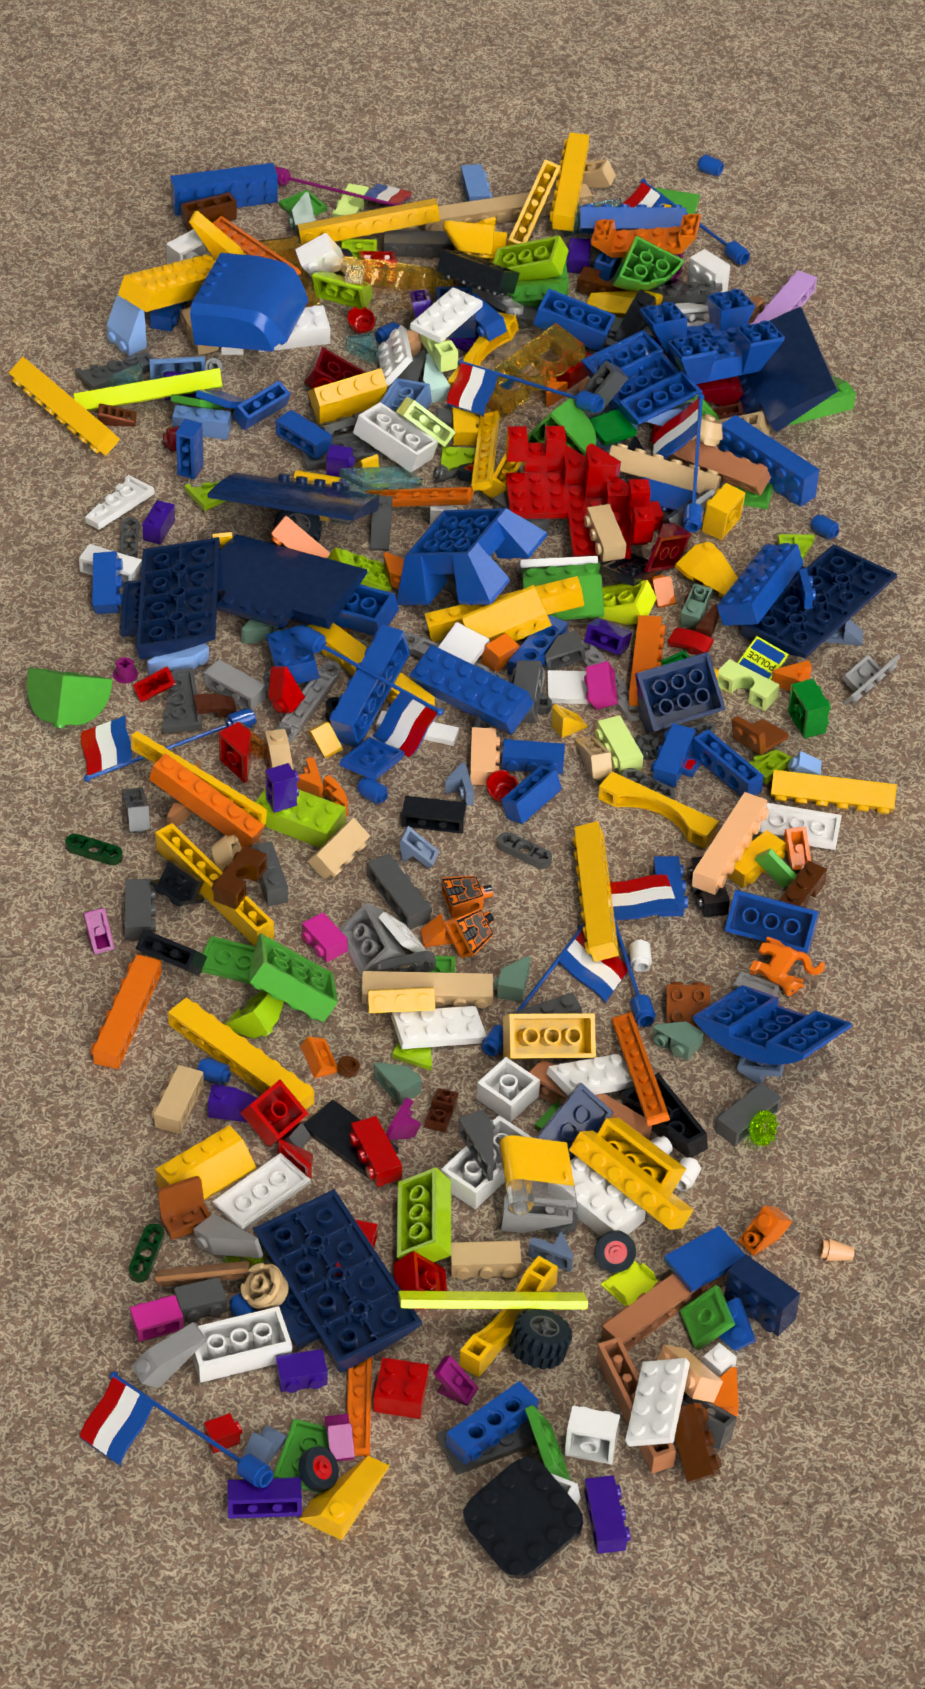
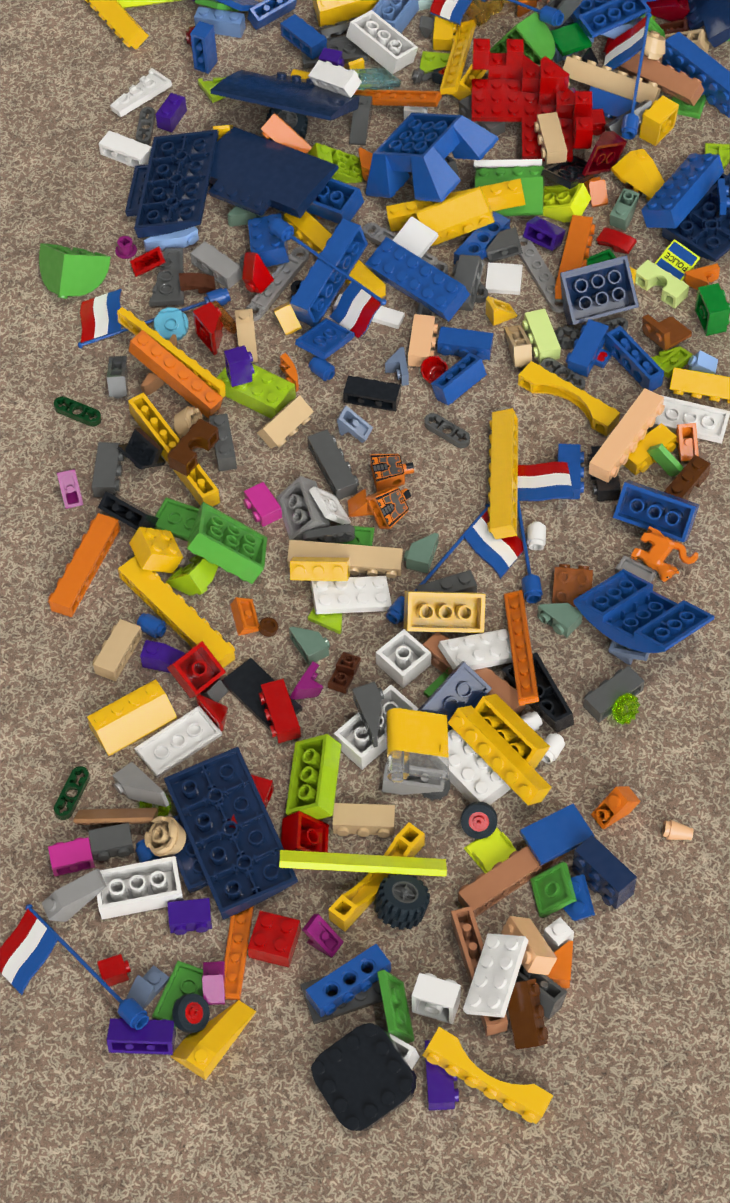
camera: 10 degrees right, 10 degrees up
(107, 582) = (118, 166): blue brick -> none
(110, 416) = (144, 13): copper slope -> none
(182, 1207) = (106, 754): dark orange bracket -> none
(192, 748) = (170, 322): none -> medium azure tile
(210, 989) = (156, 550): none -> yellow brick
(310, 779) = (269, 357): orange slope -> none
(350, 476) = (335, 78): none -> white brick
(425, 421) = (408, 28): yellowish green brick -> none
(499, 652) = (446, 245): orange slope -> none
(556, 1253) = (426, 818): sand blue slope -> none
(601, 685) = (532, 279): dark pink brick -> none
(701, 1531) = (448, 1053): none -> yellow arch
(708, 622) = (633, 224): copper slope -> none

